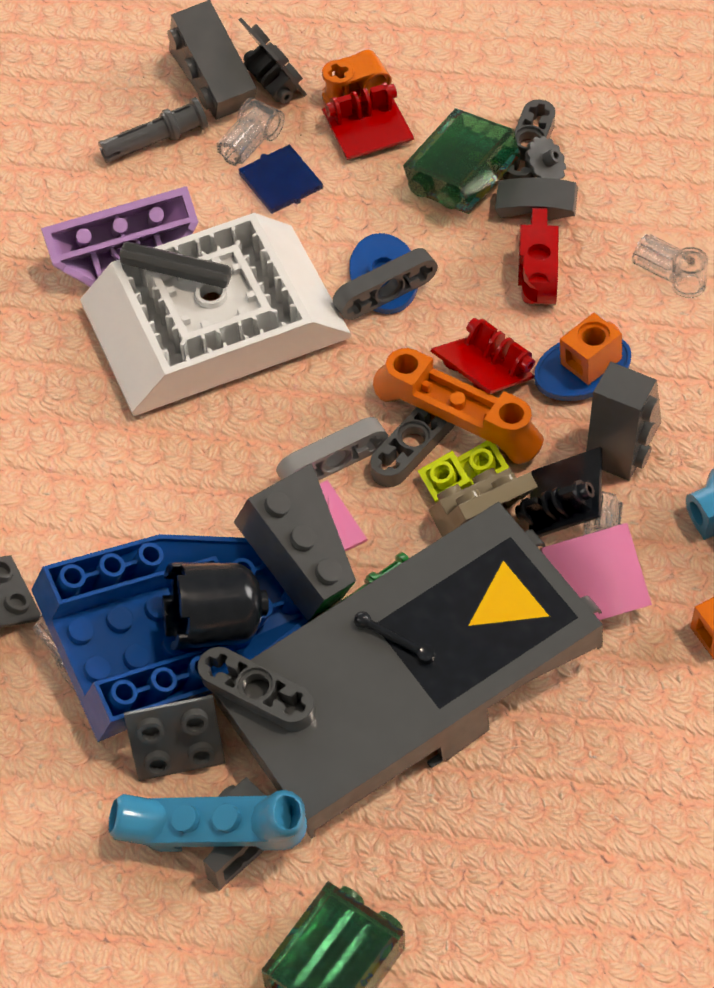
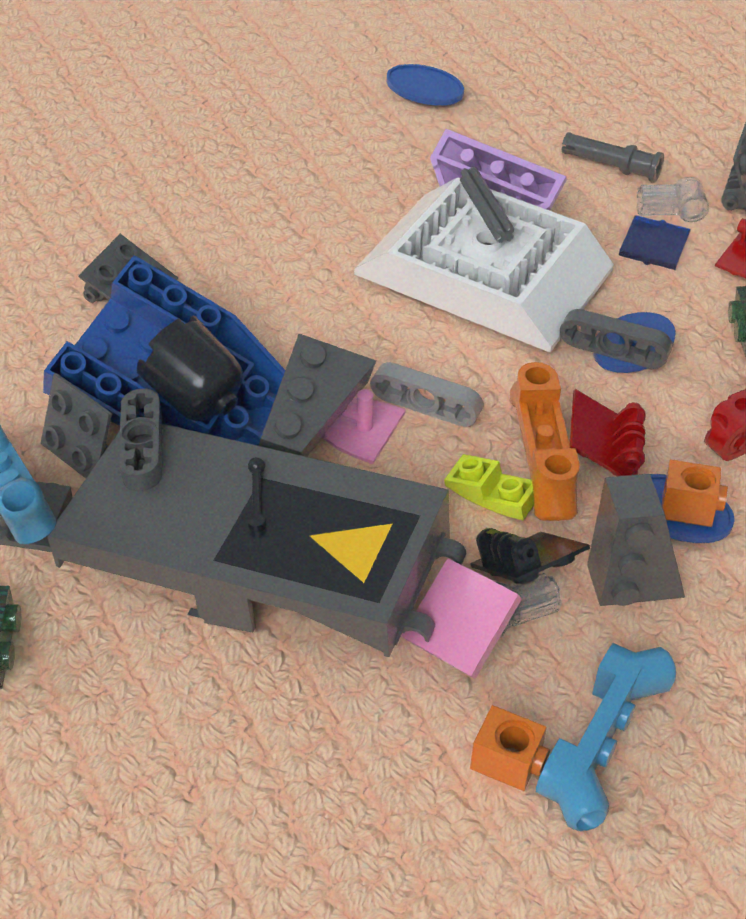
camera: 50 degrees right, 10 degrees down
(210, 59) = (706, 138): dark grey wedge -> none
(409, 456) = (478, 427): dark grey beam -> none
(489, 487) = (470, 503): dark tan plate -> none

